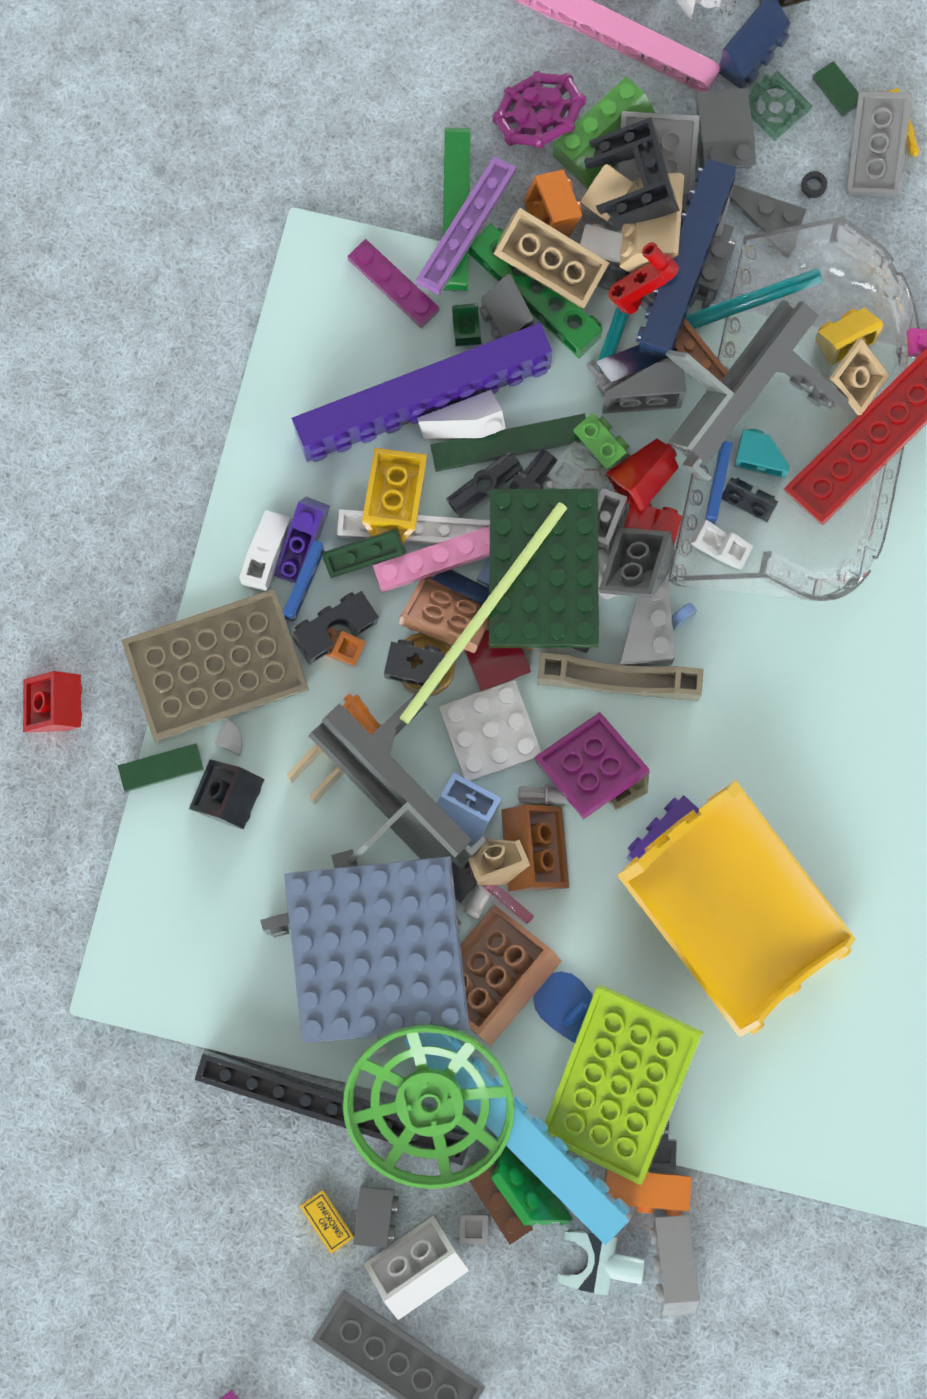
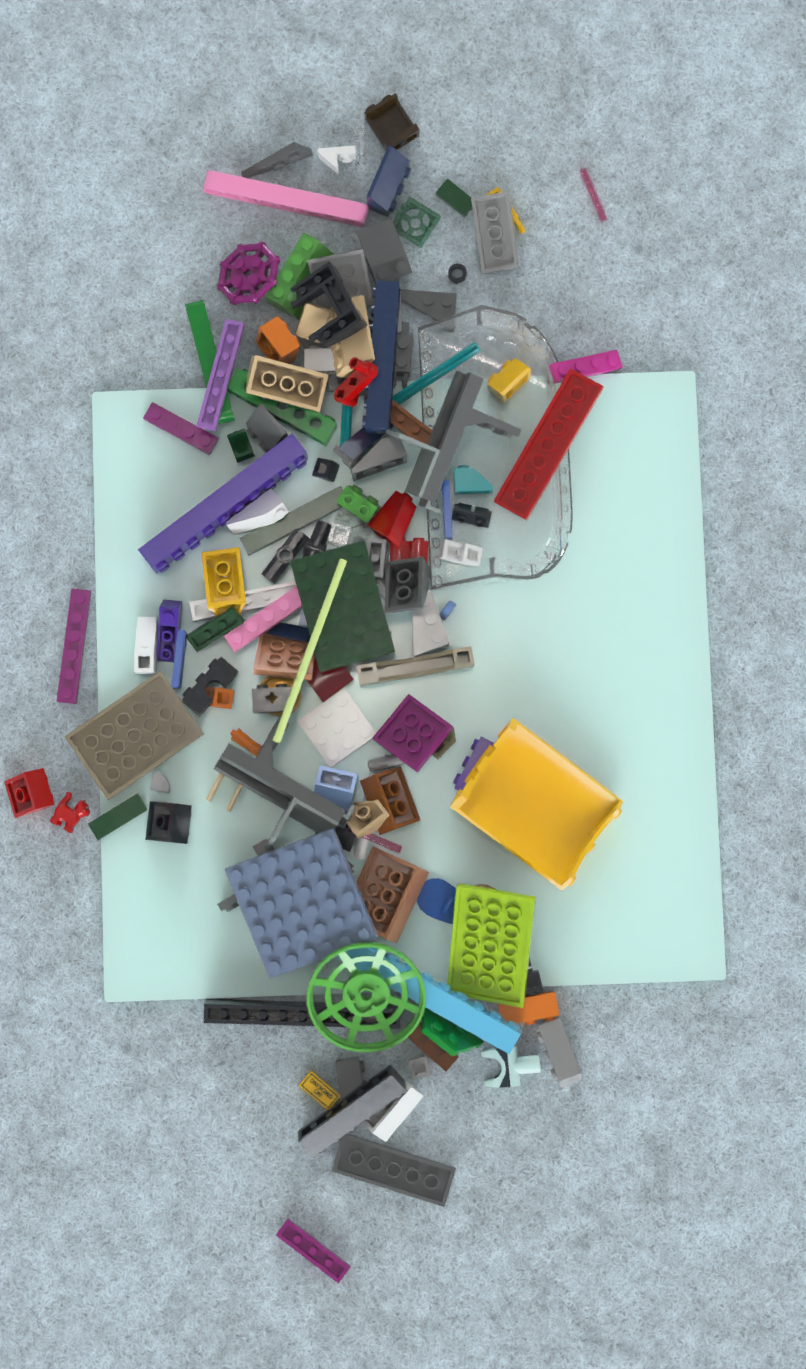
camera: 15 degrees left, 5 degrees up
(97, 749) = (67, 814): none -> red animal
(169, 527) = (73, 646): none -> magenta plate
(363, 1262) = (351, 1111): none -> brick
(570, 387) = (325, 469): none -> black slope
(859, 376) = (524, 410): tan slope -> none

